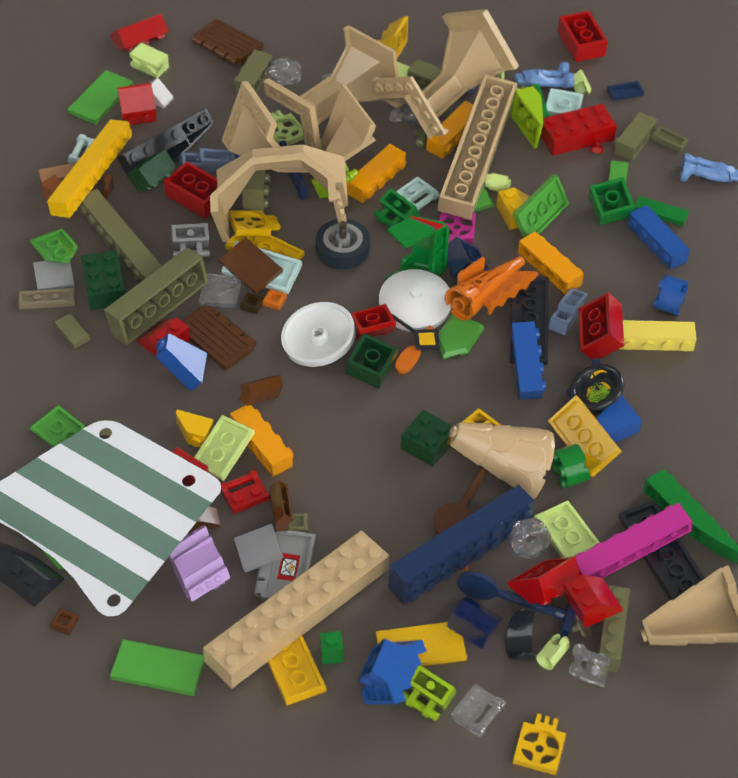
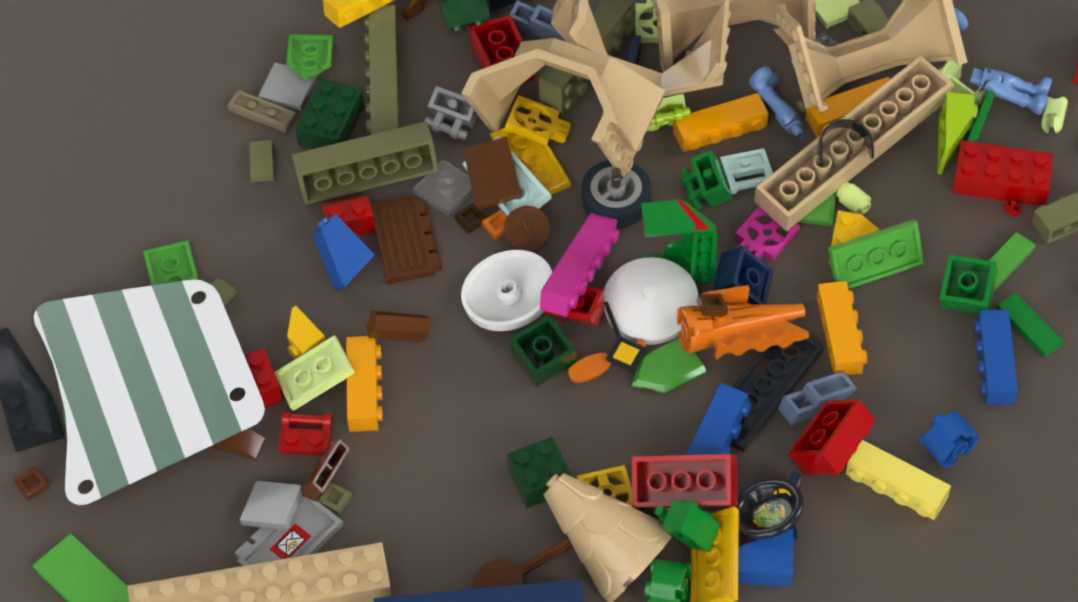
camera: 35 degrees right, 5 degrees up
(198, 564) = (194, 492): lavender slope -> none
(299, 291) = (526, 228): none -> reddish brown tile
(359, 295) = (579, 264): none -> dark pink brick
(411, 148) = (764, 82): none -> medium blue piece
(470, 277) = (712, 305): none -> reddish brown tile
(478, 131) = (853, 125): none -> black piece
(534, 394) = (700, 478): none -> red brick
(556, 419) = (689, 524): none -> green brick
(563, 101) = (1013, 130): light aqua plate -> none

